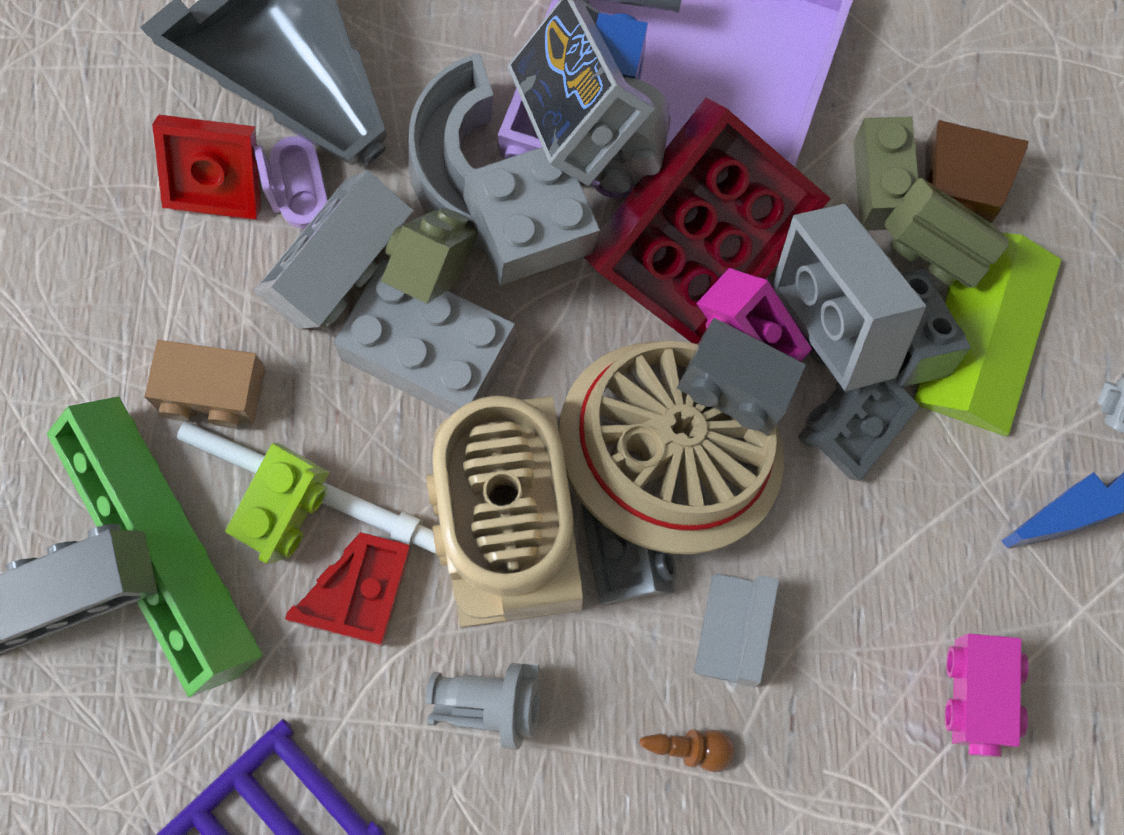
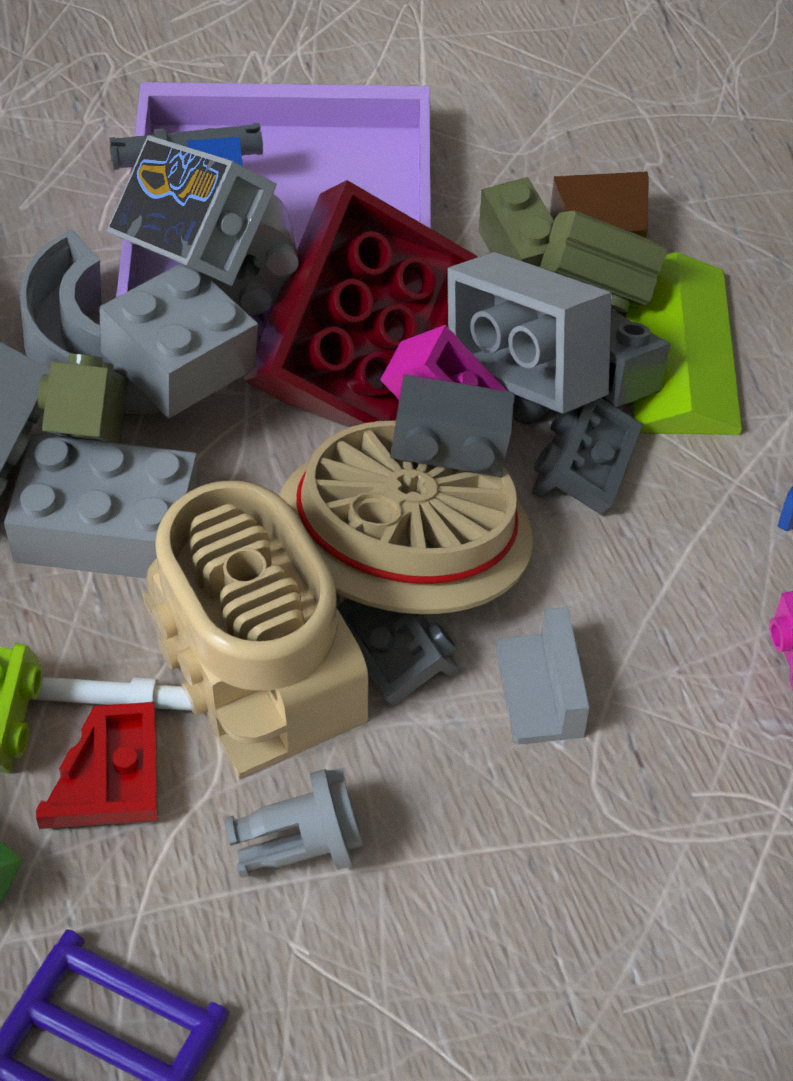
camera: 20 degrees left, 20 degrees down
(710, 750) = (561, 809): dark orange bar -> none

